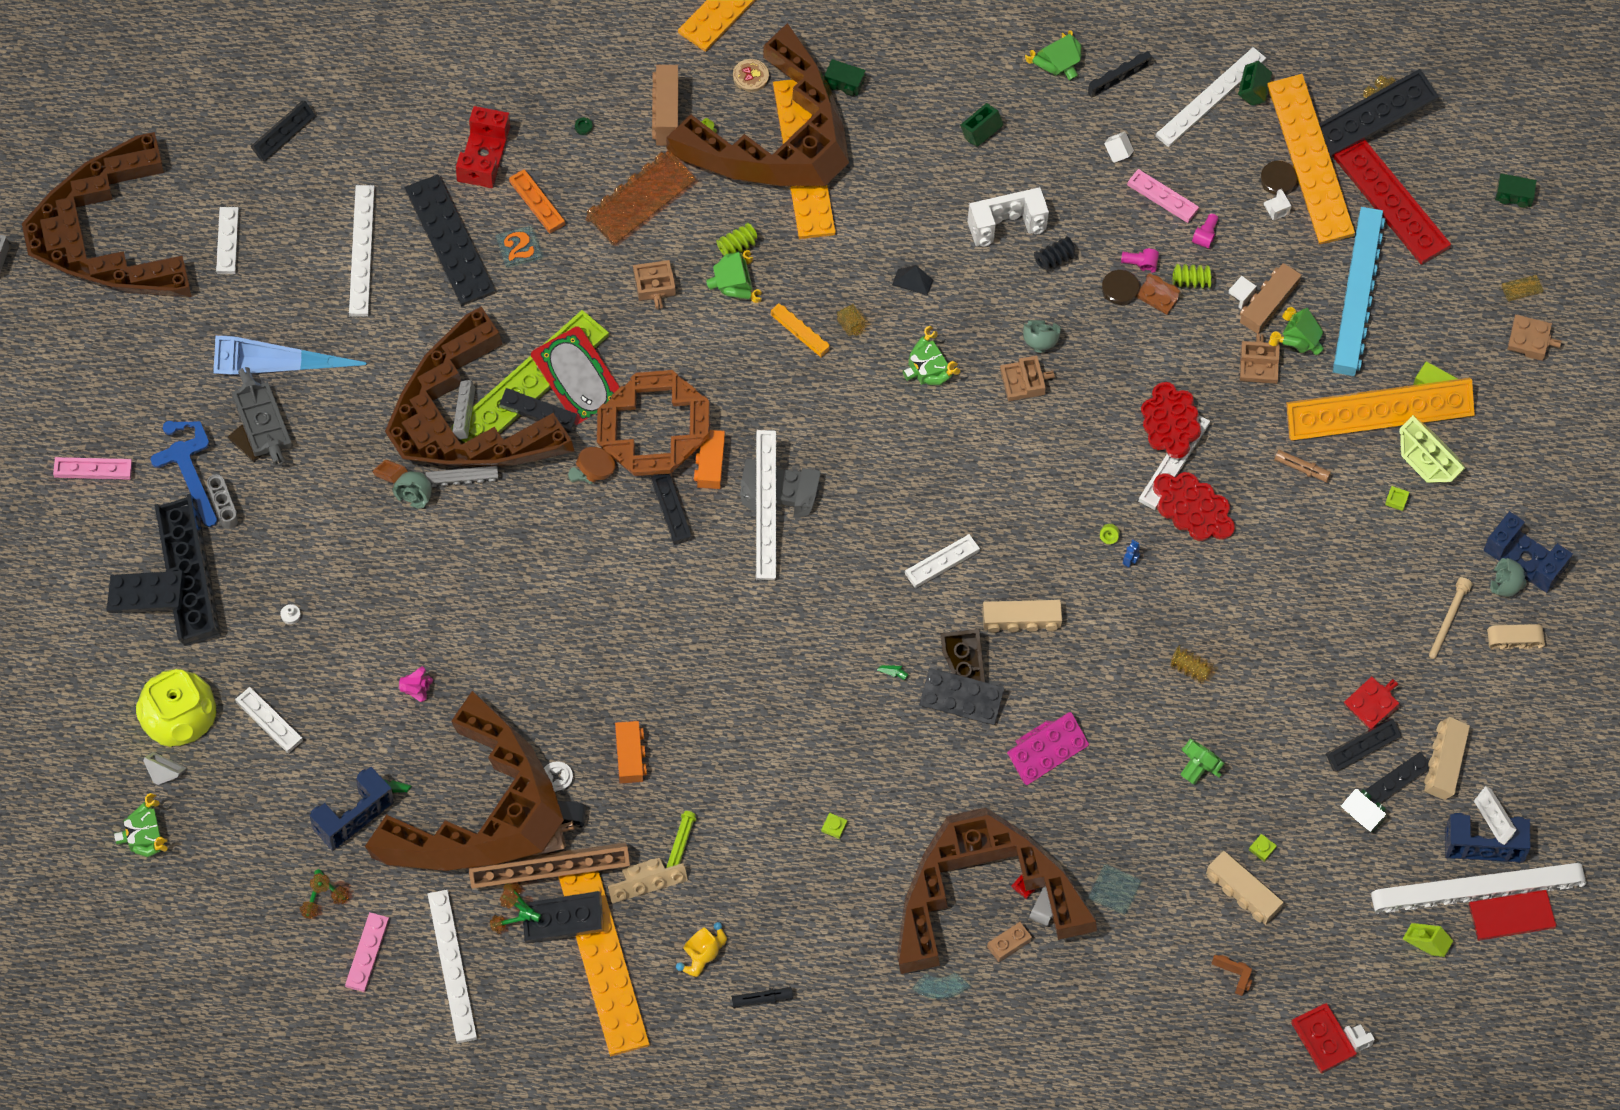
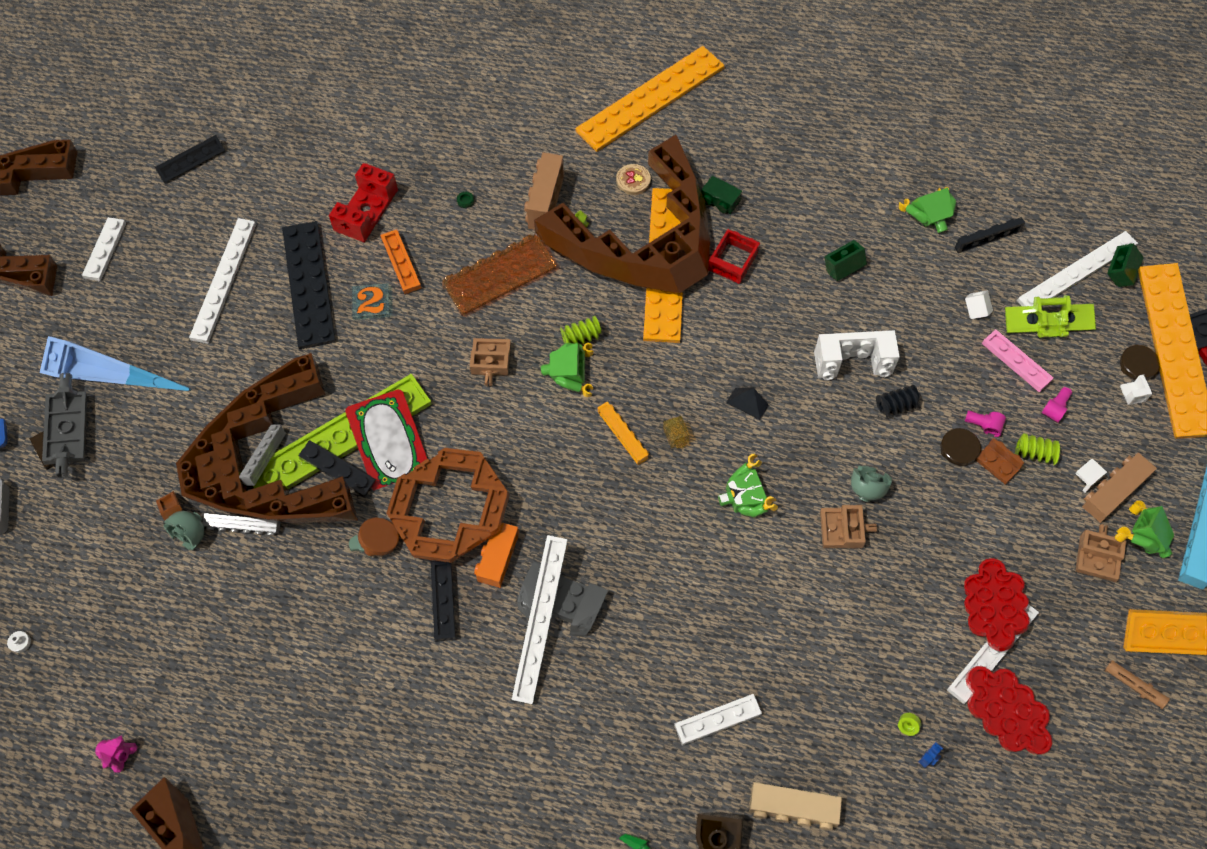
camera: 15 degrees right, 0 degrees up
(868, 154) = (727, 269): none -> red window
(1192, 154) = (1053, 324): none -> lime piece

